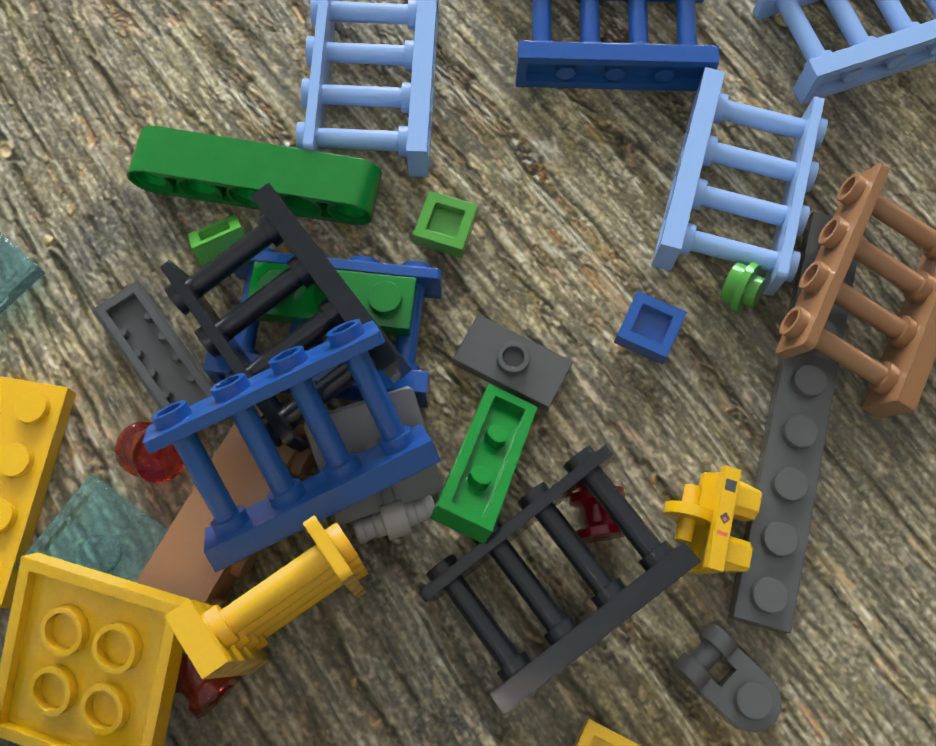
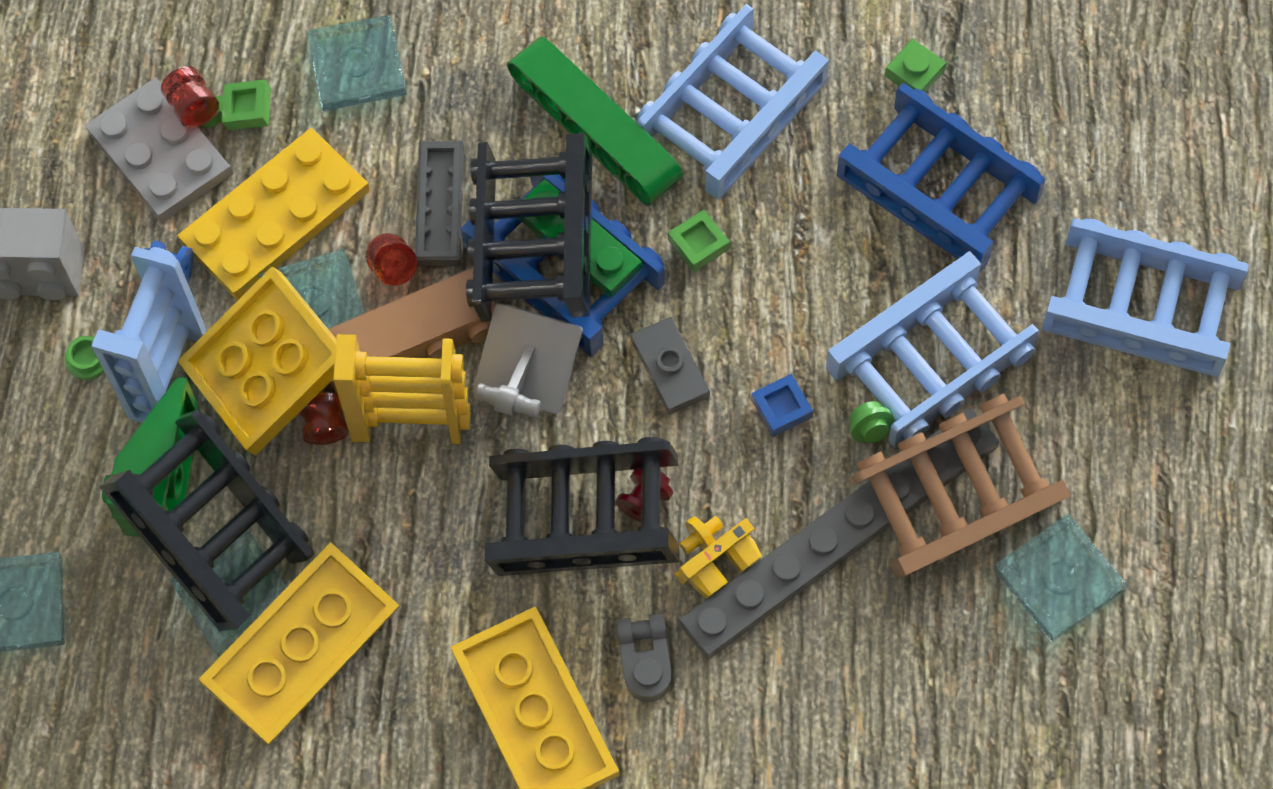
camera: 40 degrees right, 5 degrees down
(215, 238) = (534, 145): bright green plate -> none
(345, 476) = (496, 347): blue fence -> none
(484, 464) = (594, 407): green plate -> none

